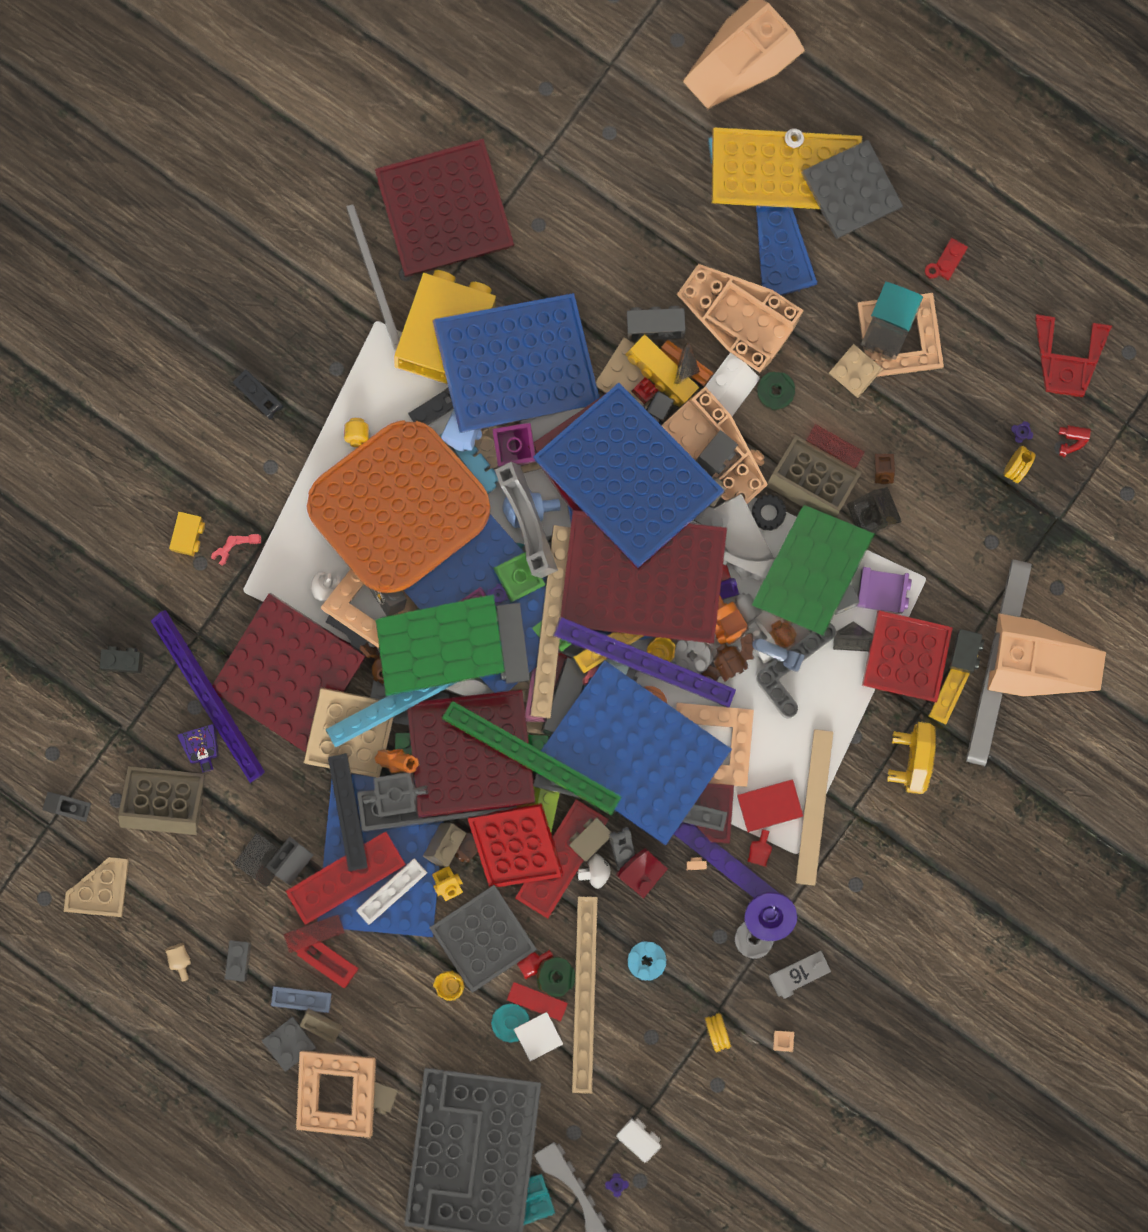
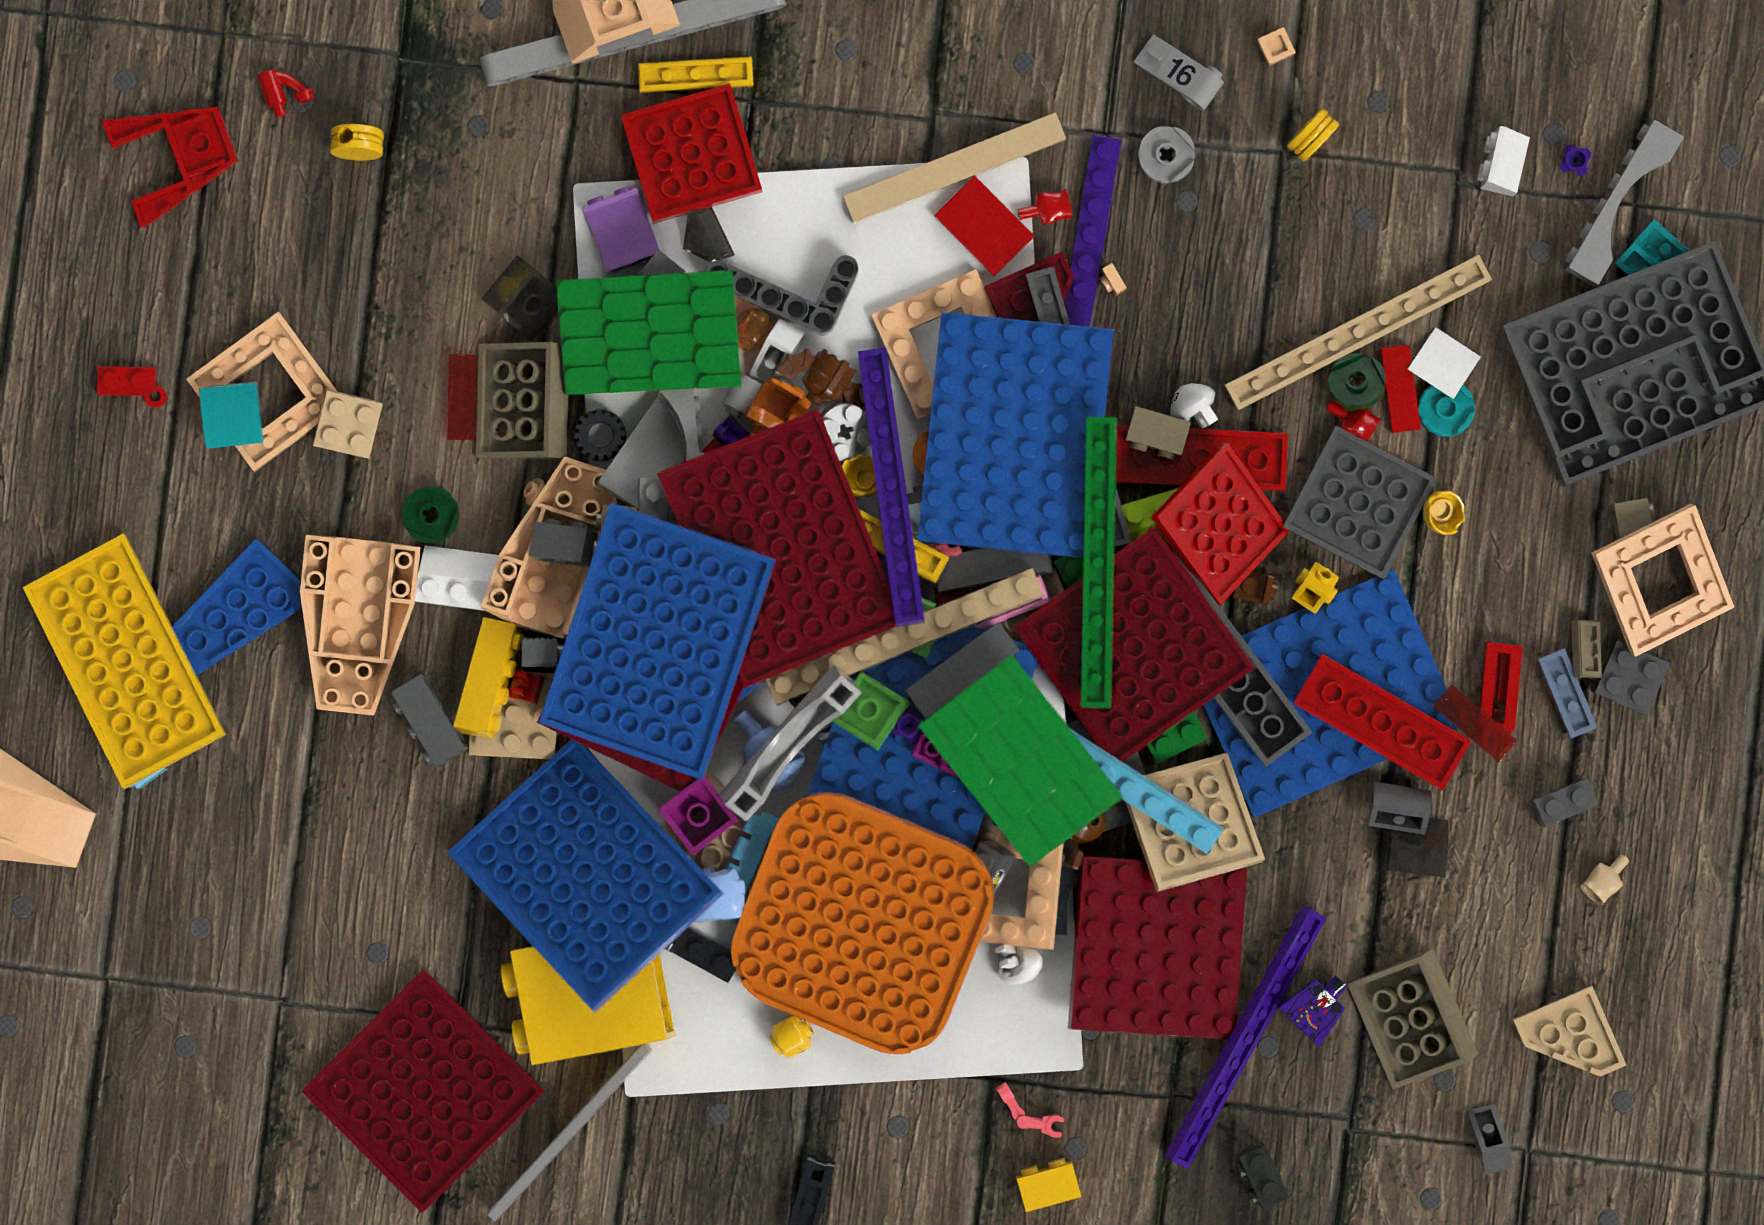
camera: 125 degrees left, 5 degrees up
(348, 812) = (1297, 765): black plate -> none
(391, 891) = (1365, 653): white tile -> none
(395, 794) = (1243, 713): dark grey plate -> none
(396, 760) = (1197, 737): orange piece -> none
(444, 844) = (1268, 618): dark tan brick -> none
(623, 849) = (1151, 379): dark grey plate -> none
(642, 872) = (1162, 344): dark red plate -> none
(643, 971) = (1286, 273): medium azure plate -> none
(674, 354) = (461, 633): orange piece -> none
(687, 365) = (464, 647): clear smoke slope -> none
(770, 916) = (1128, 146): dark purple hat -> none
(790, 659) = (781, 301): sand blue piece -> none
(798, 134) = (69, 669): white plate -> none
(852, 189) = (104, 560): dark grey plate -> none
(884, 338) = (286, 407): clear smoke slope -> none
(884, 468) = (457, 316): reddish brown bracket -> none
(920, 759) = (818, 63): yellow brick -> none
(966, 651) = (643, 79): pearl dark grey brick -> none
(1022, 427) = (317, 162): dark purple plate -> none

